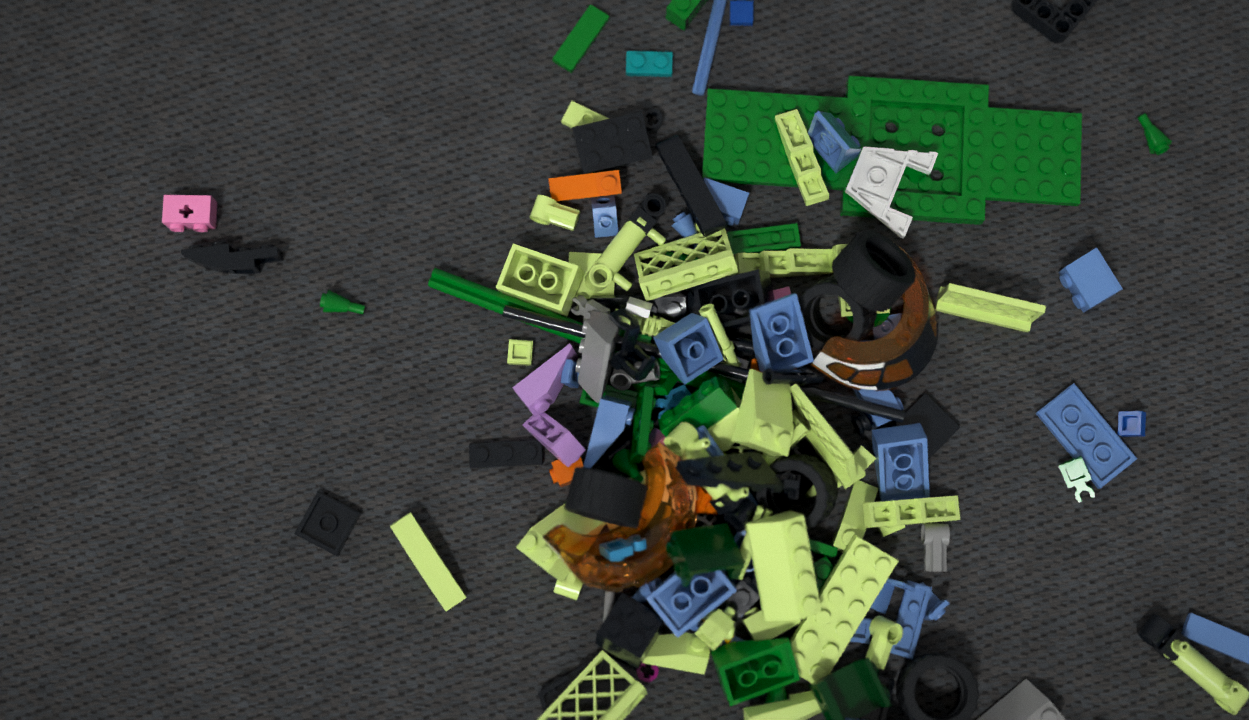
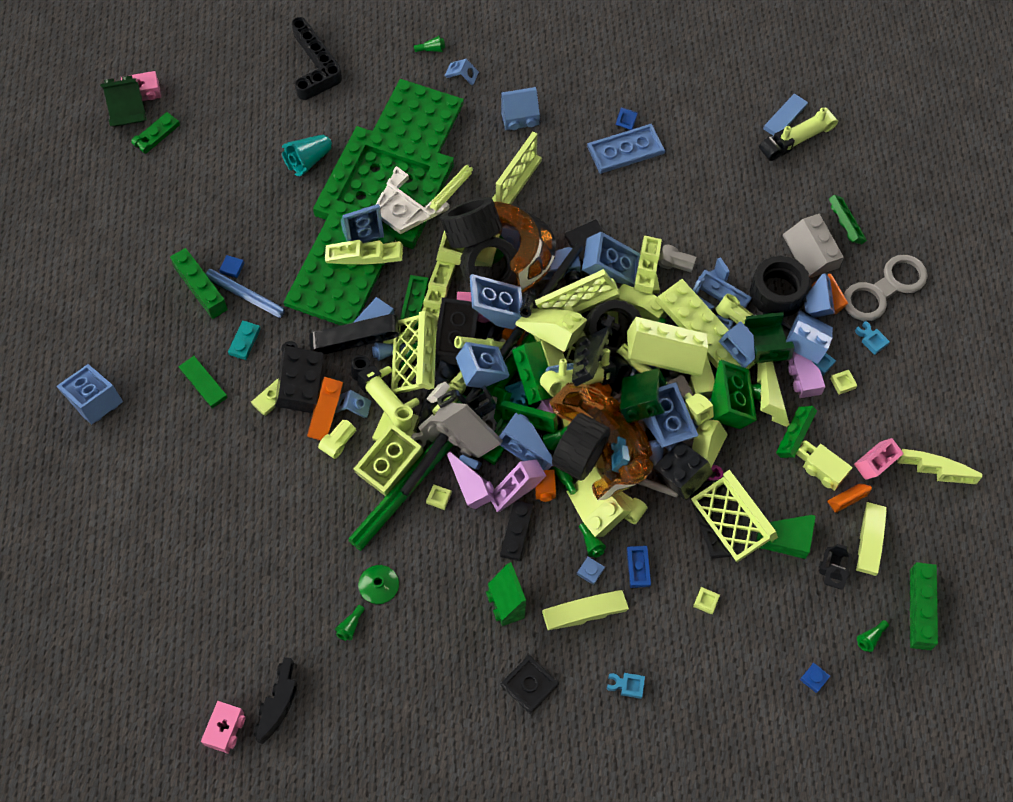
camera: 75 degrees left, 15 degrees down
(354, 638) = (631, 684): none -> dark azure plate
(404, 328) = (378, 593): none -> green dish
(412, 468) = (506, 596): none -> green slope
(481, 554) = (590, 570): none -> medium blue plate
(483, 701) = (706, 600): none -> yellowish green tile
(500, 609) = (638, 566): none -> blue plate
(508, 550) = (594, 546): none -> green cone
(828, 659) = (739, 344): none -> medium blue slope
(927, 39) = (305, 153): none -> teal cone
(933, 231) = (451, 187): none -> yellowish green axle
(1077, 474) = (651, 160): plate -> none
(1128, 183) = (461, 67): none -> medium blue bracket

